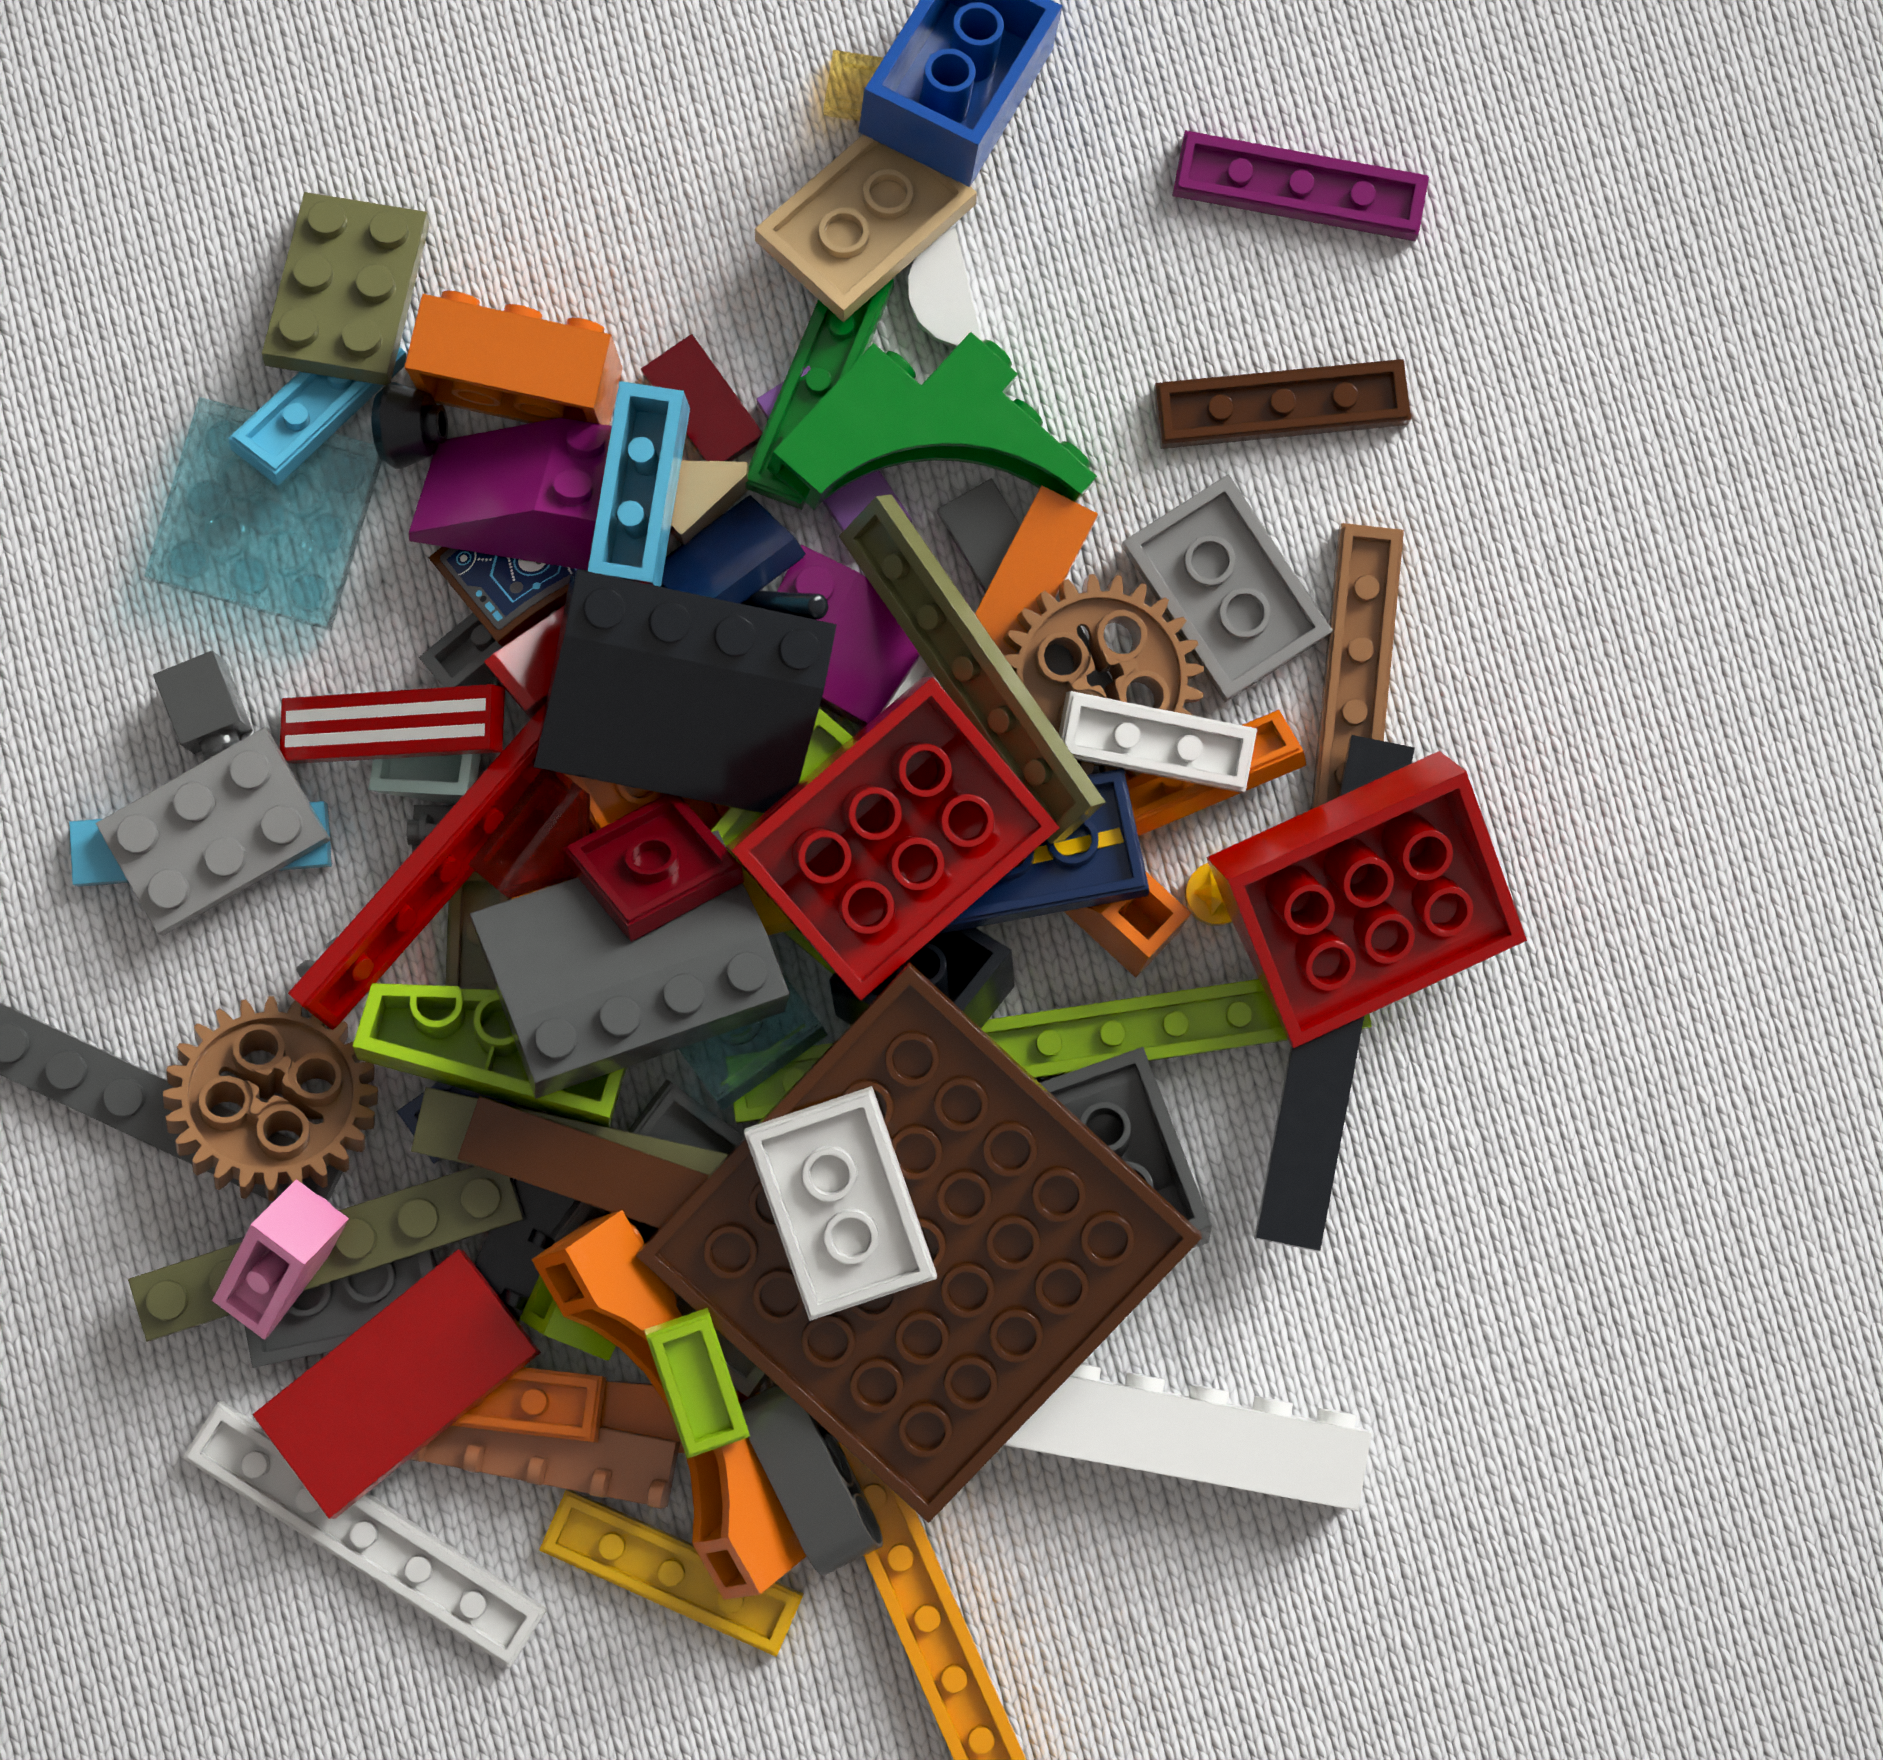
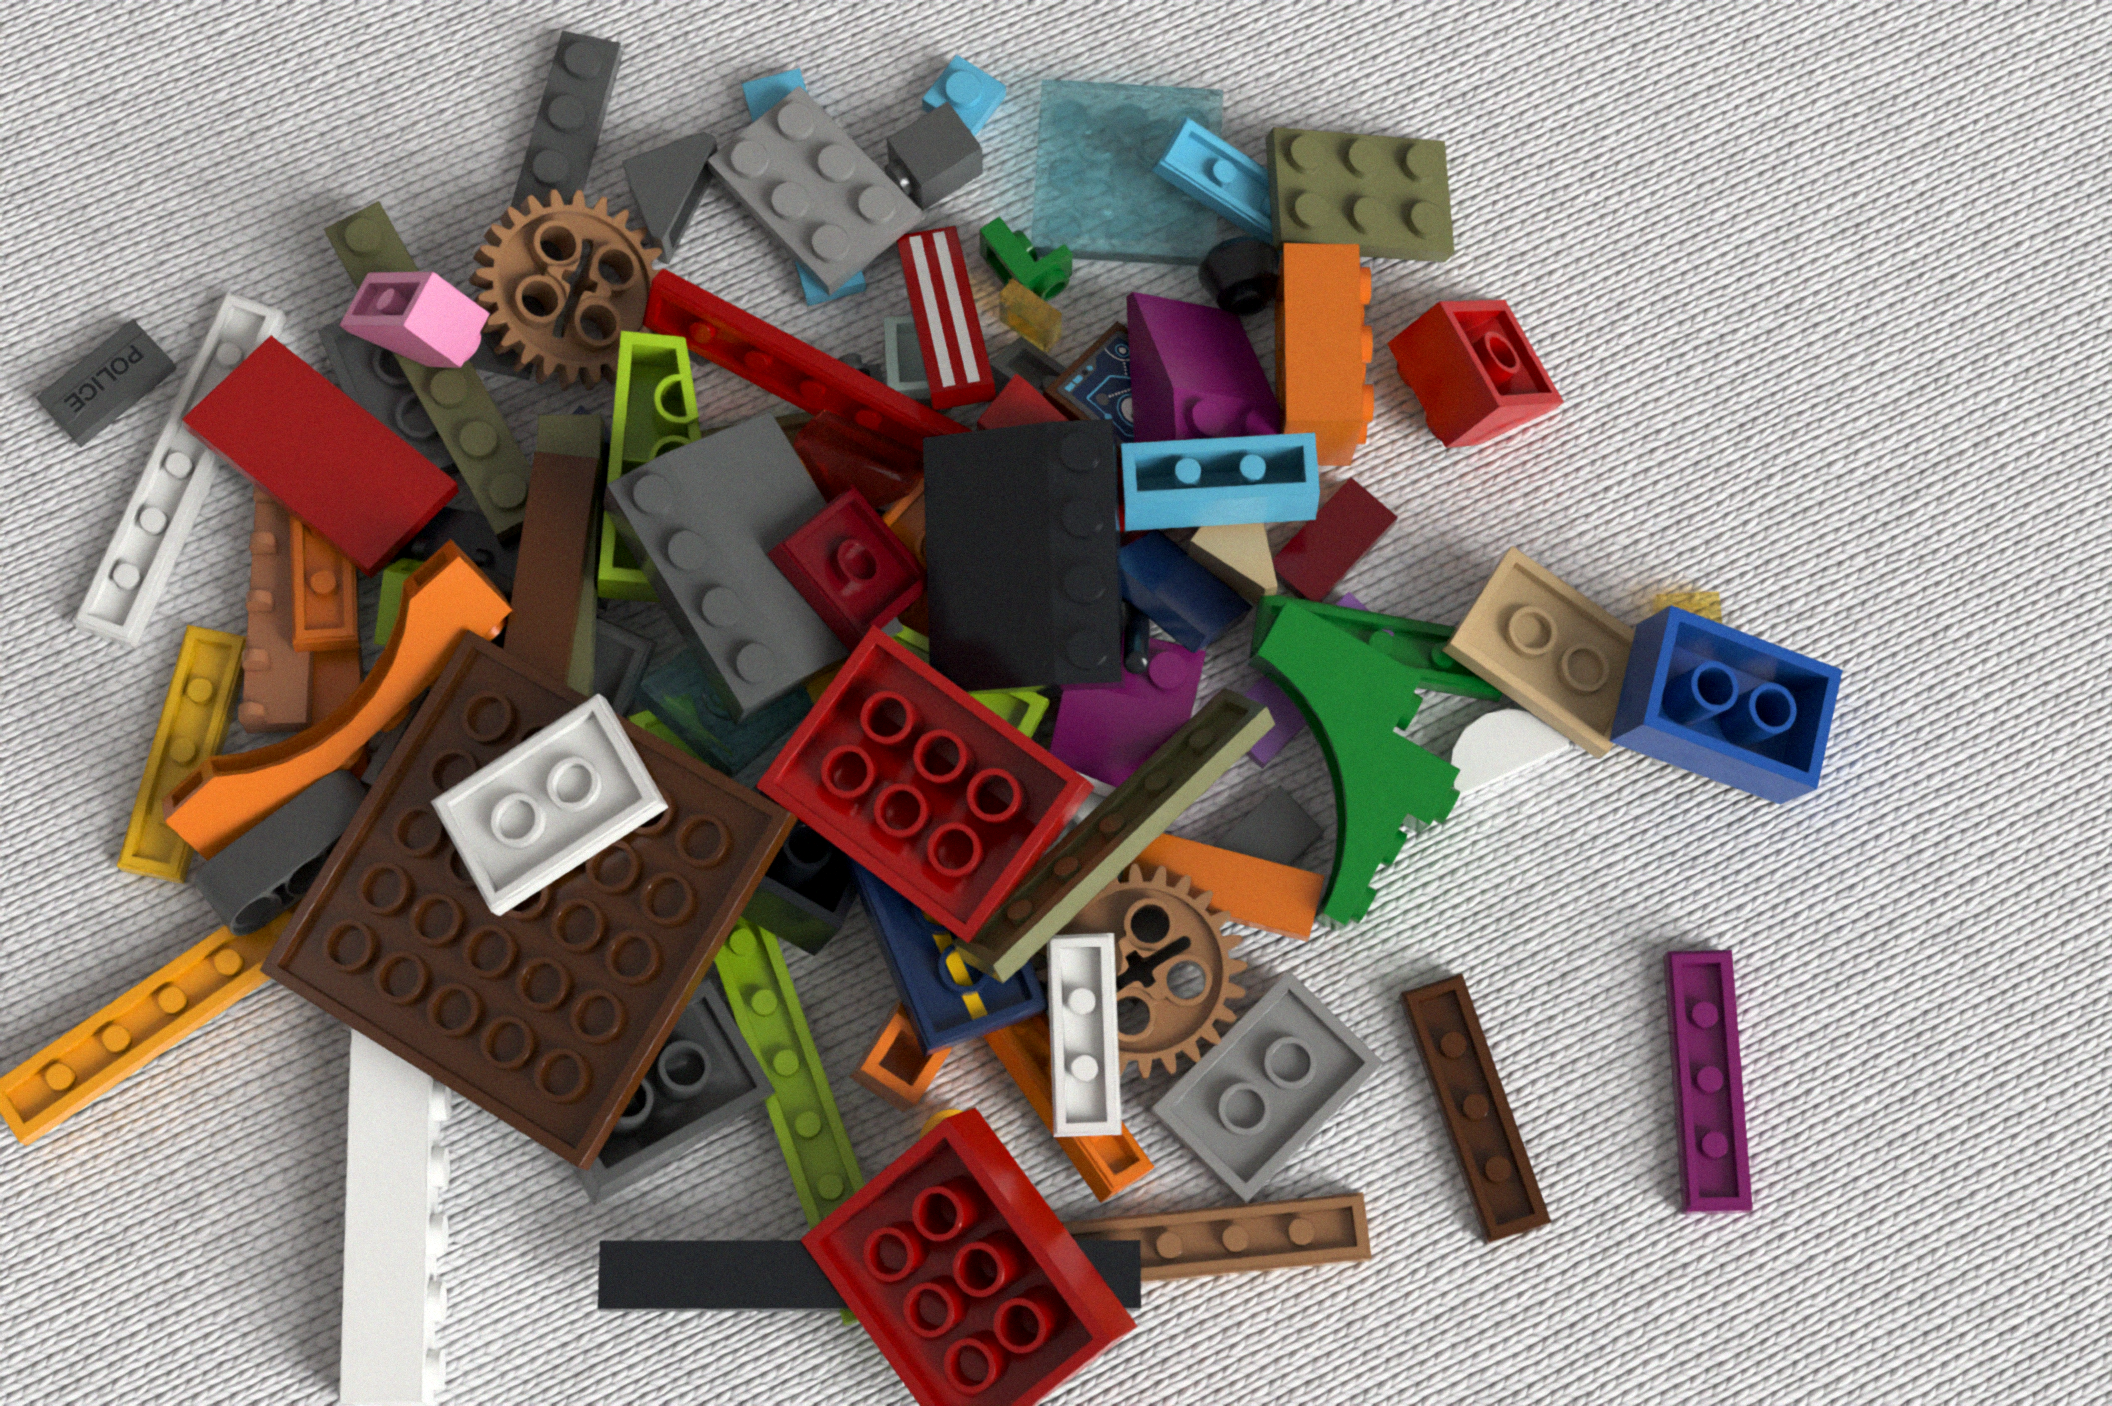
camera: 80 degrees right, 10 degrees down
(134, 658) = (968, 91): none -> medium azure plate
(175, 983) = (669, 188): none -> dark grey slope
(254, 1597) = (106, 383): none -> dark grey tile
(338, 647) = (1014, 257): none -> green bracket
(400, 643) = (1030, 316): none -> clear yellow tile
(559, 224) = (1473, 371): none -> red slope
(697, 1383) = (356, 713): lime tile -> none

